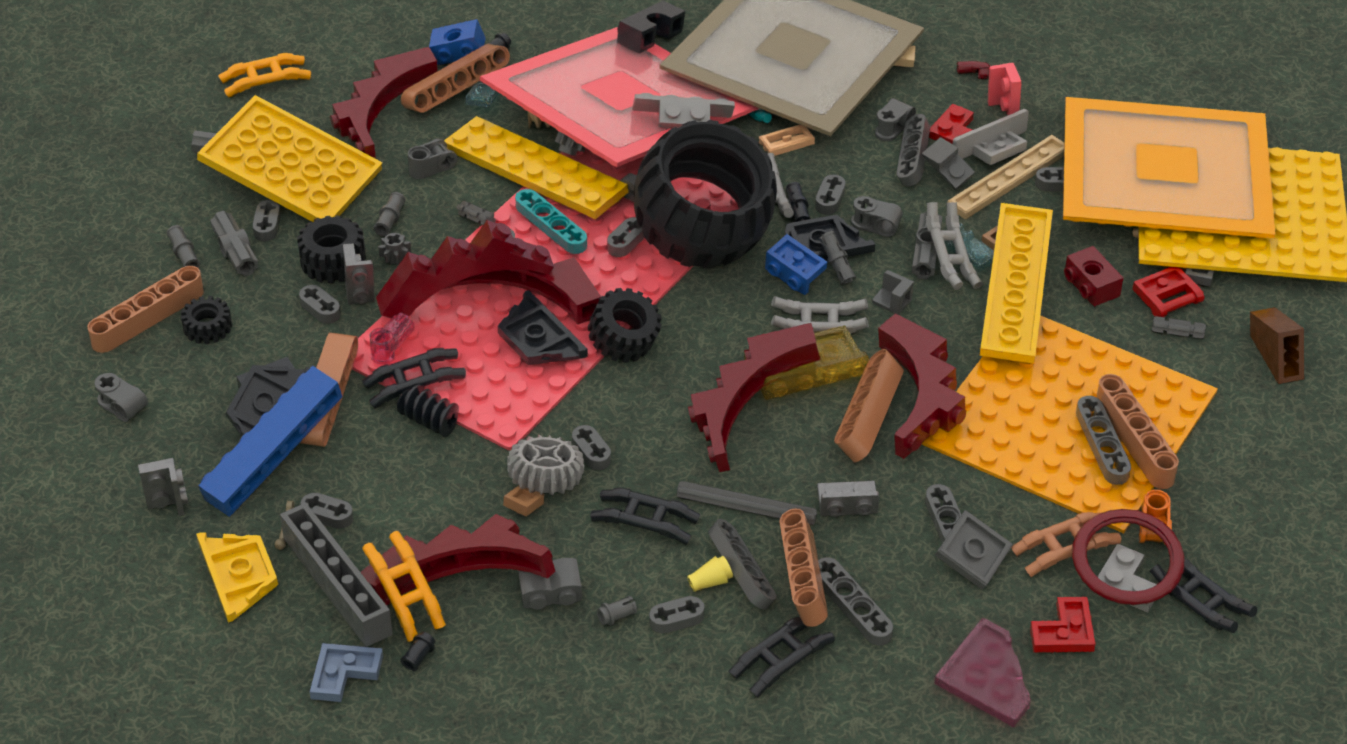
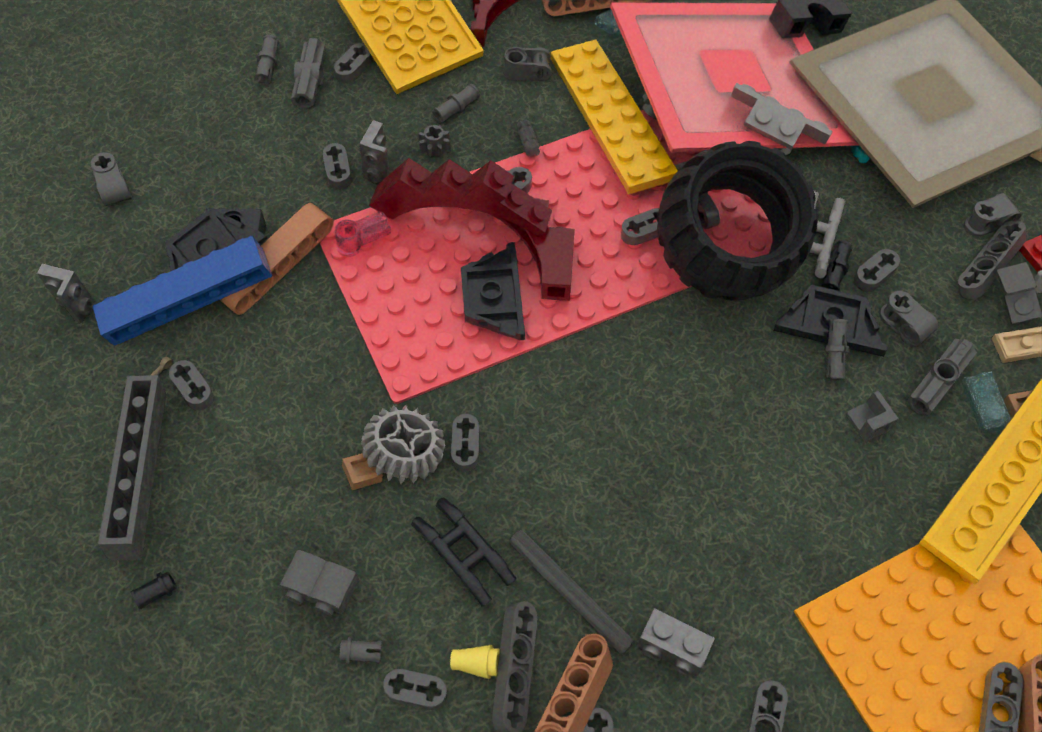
camera: 30 degrees right, 15 degrees up
(145, 309) = (193, 104): nougat beam -> none
(206, 309) = (232, 126): black tyre -> none
(238, 570) = (71, 411): yellow wing -> none
(322, 247) = (380, 101): black tyre -> none
(343, 662) = (72, 564): sand blue plate -> none
(400, 602) = (192, 498): light orange piece -> none
(428, 376) = (368, 290): black piece -> none
(429, 409) = (345, 326): black piece -> none
(456, 550) = (252, 497): dark red arch -> none
(555, 218) = (585, 177): teal beam -> none
(633, 310) = (593, 309): black tyre -> none
(739, 381) = (687, 436): dark red arch -> none
(788, 142) = (870, 193): light nougat tile -> none
(794, 264) = (789, 335): blue bracket -> none
(831, 309) = (774, 390): light grey piece -> none
(838, 361) = (733, 454): clear yellow bracket -> none
(869, 405) = (762, 544): nougat beam -> none
(925, 359) = (851, 553): dark red arch -> none
(951, 234) = (976, 385): light grey piece -> none

